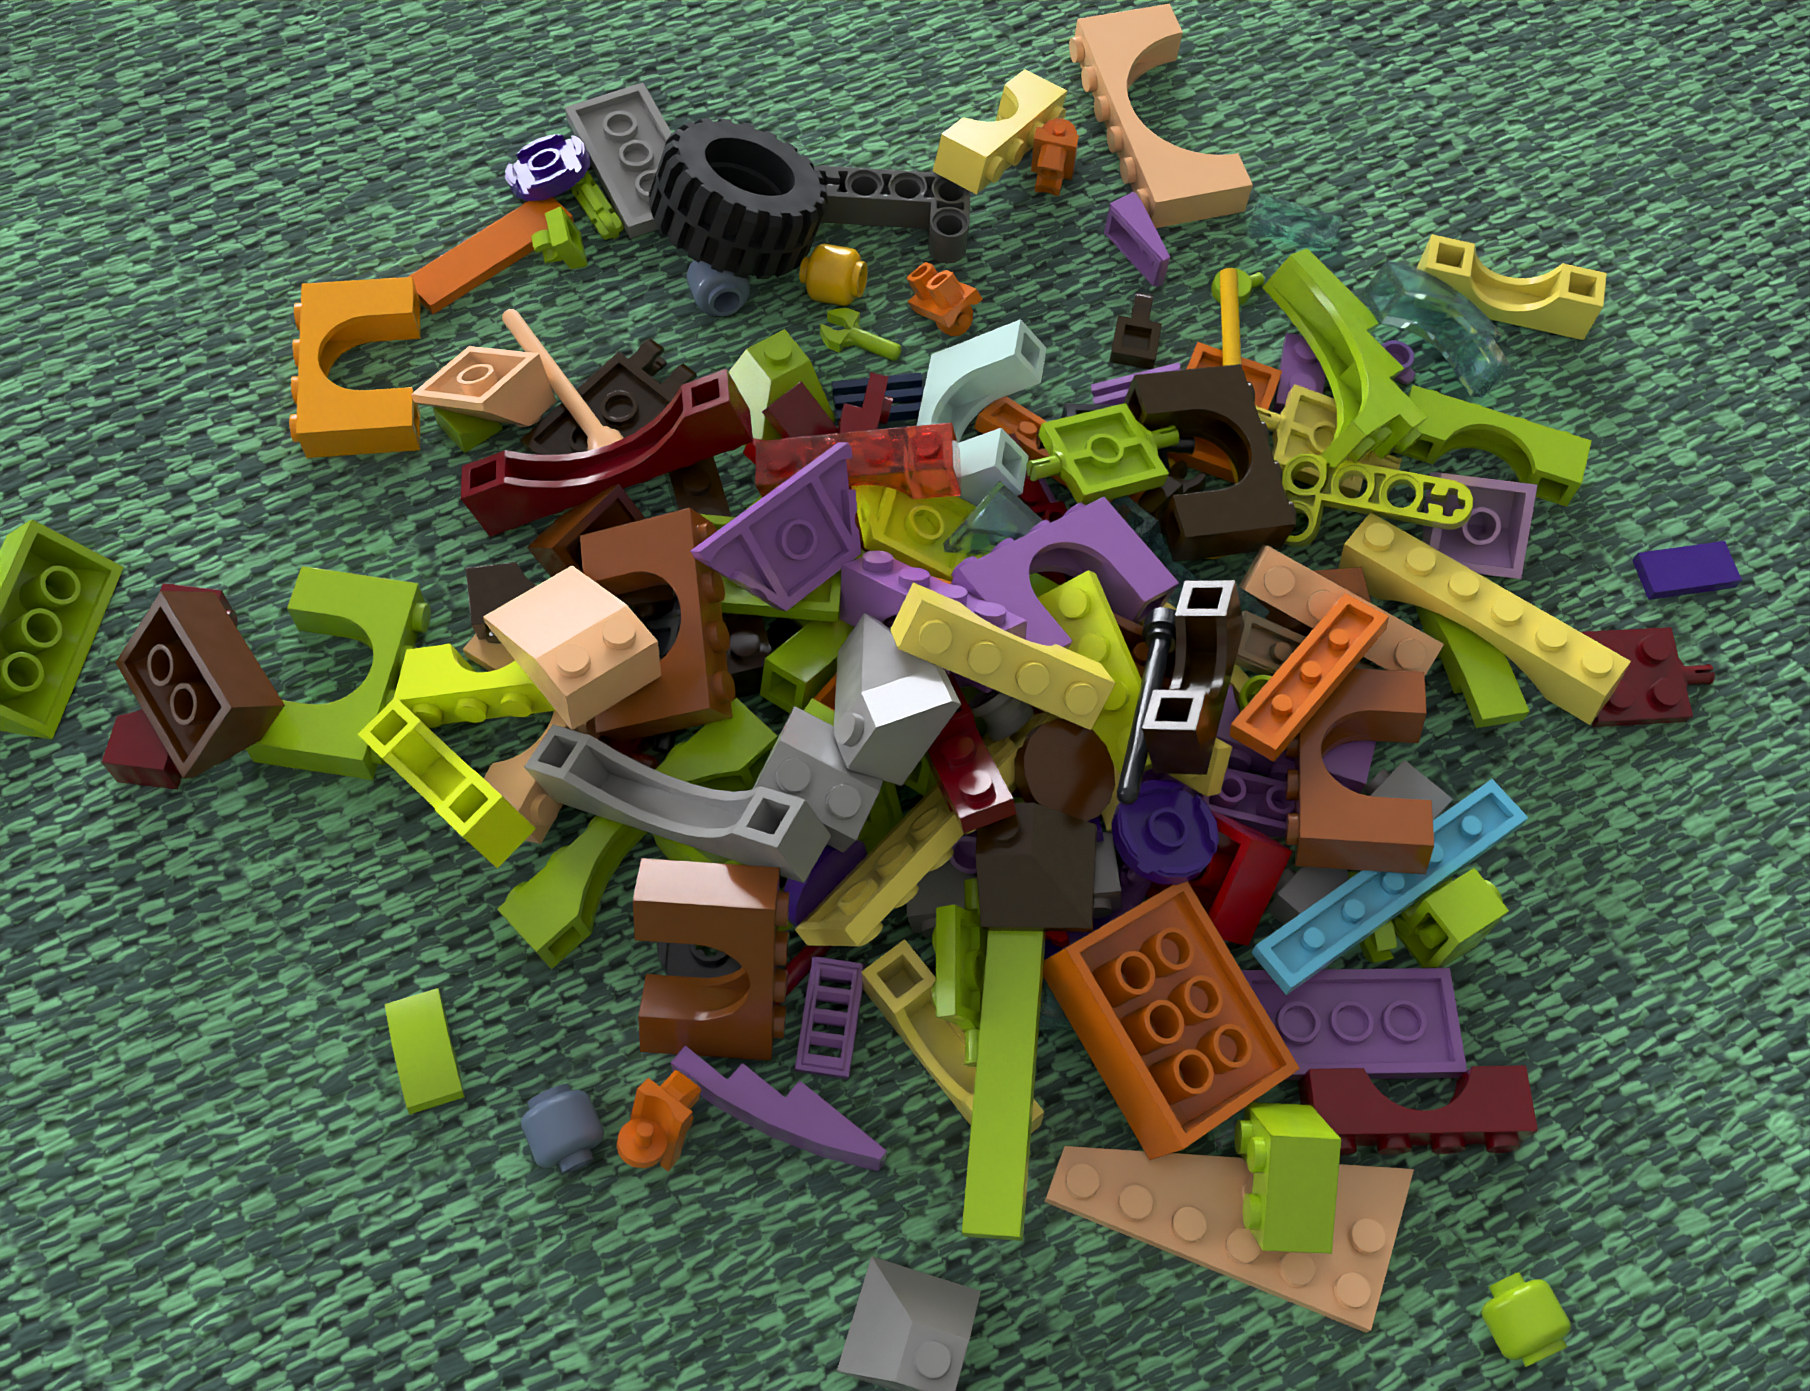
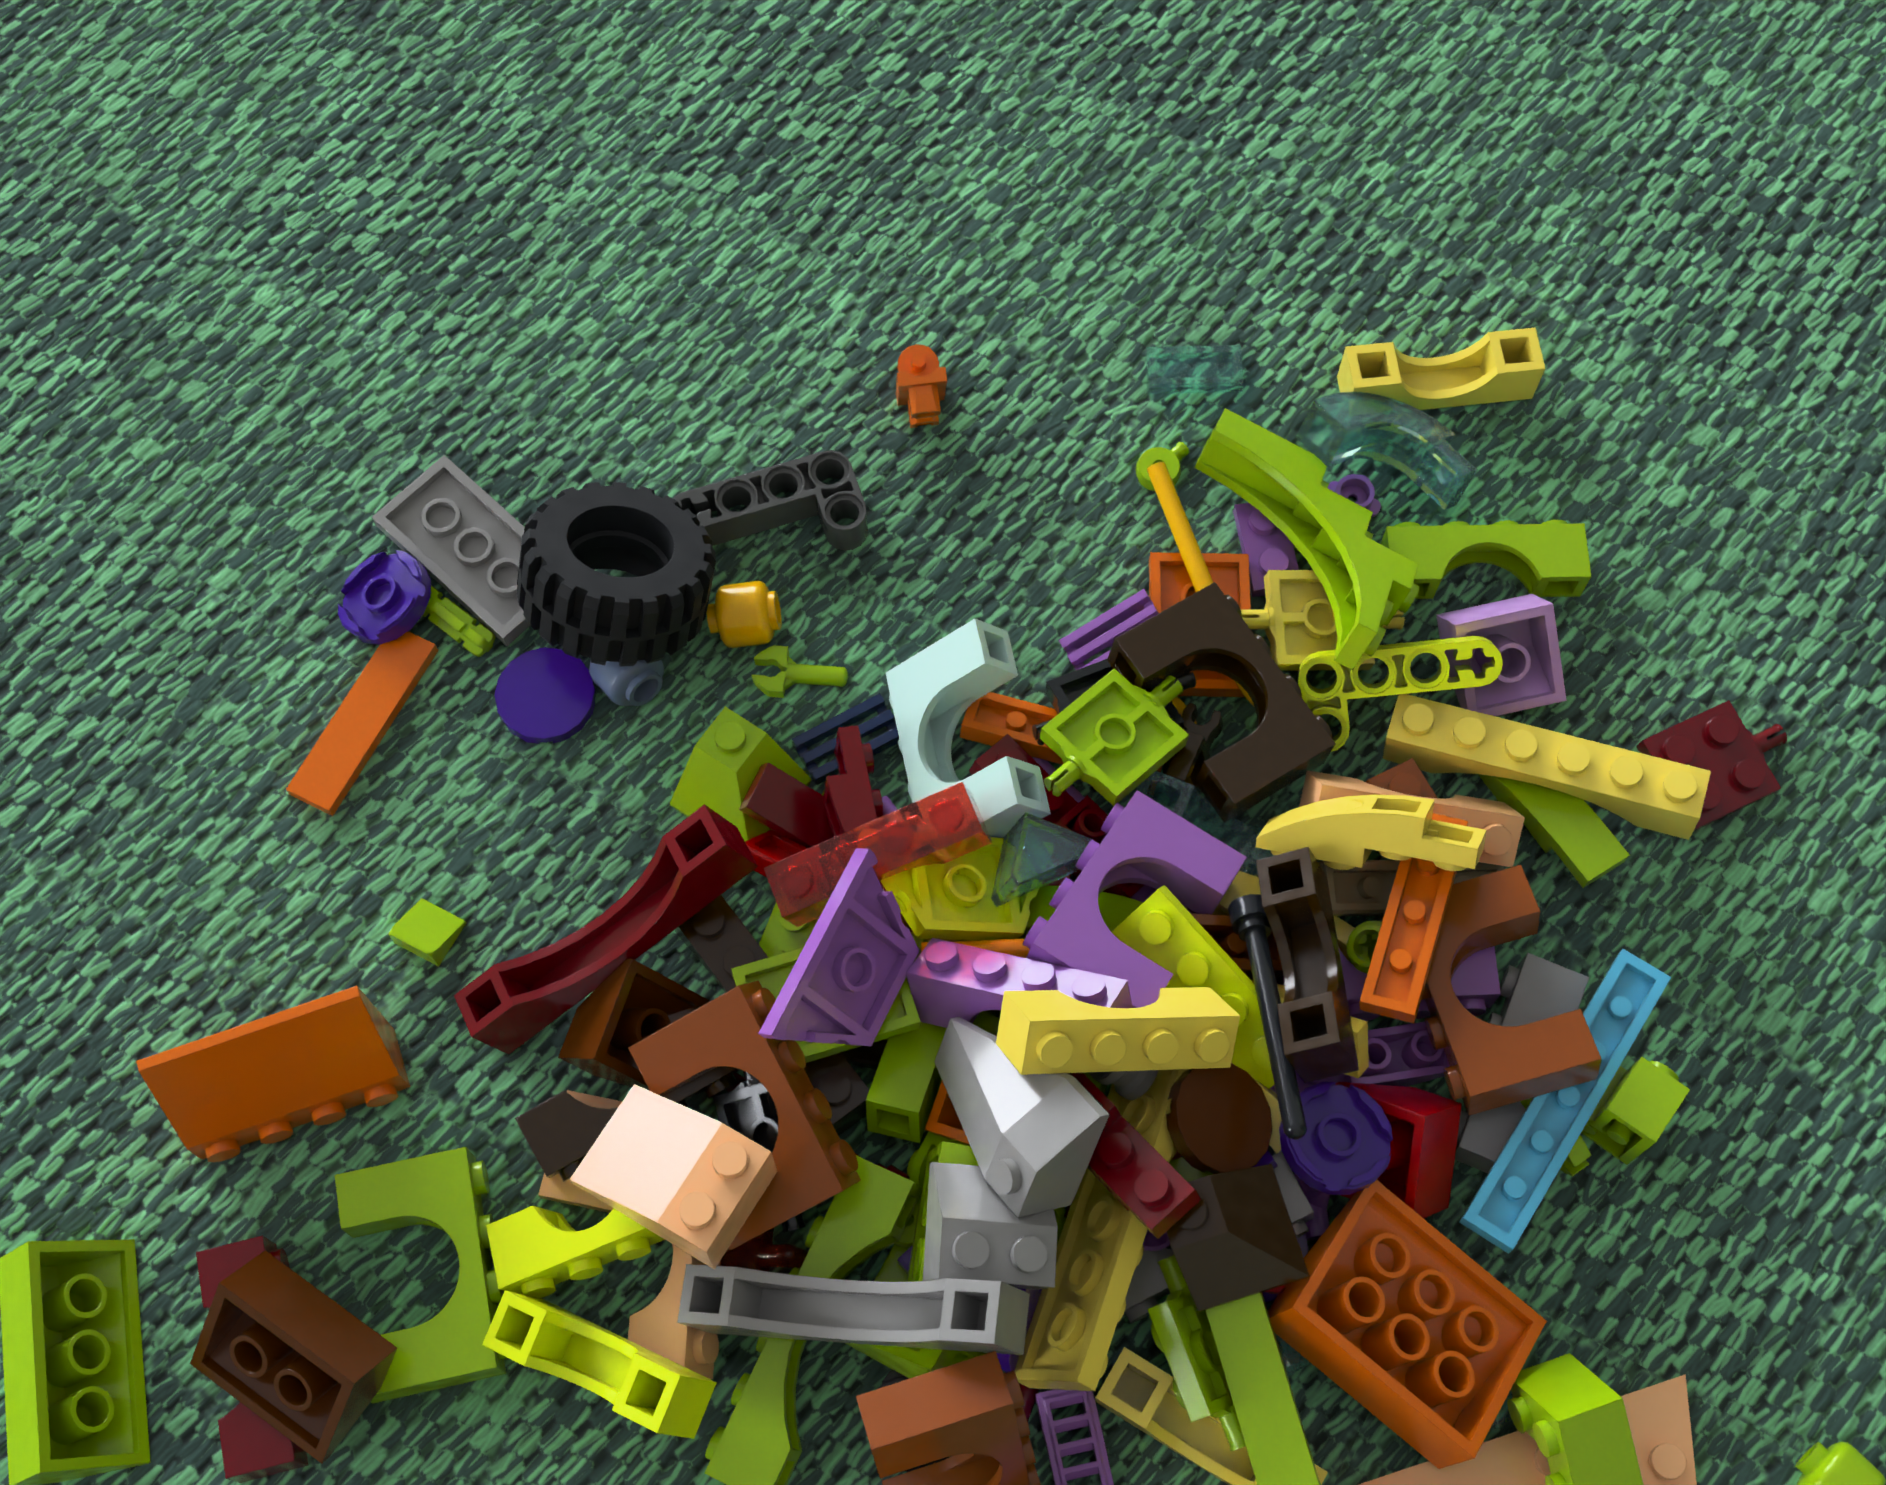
camera: 15 degrees left, 5 degrees up
(290, 467) = (277, 1074): none -> orange slope
(330, 323) = (233, 870): light orange arch -> none
(491, 386) = (438, 889): light nougat slope -> none
(560, 241) = (437, 680): lime tile -> none
(597, 433) = (584, 904): light nougat piece -> none
(618, 395) = (577, 862): dark brown tile -> none
(644, 284) = (545, 696): none -> dark purple tile
(943, 299) = (870, 601): orange hips -> none
(980, 151) = (844, 417): light yellow arch -> none
(1136, 337) = (1084, 568): dark brown plate -> none
(1137, 238) = (1040, 449): medium lavender slope -> none
(1169, 180) = (1046, 369): light nougat arch -> none
(1324, 595) = (1350, 827): none -> light yellow slope
(1369, 1019) = (1590, 1242): medium lavender plate -> none
(1486, 1108) = (1725, 1286): dark red arch -> none
(1686, 570) = (1720, 625): dark purple tile -> none

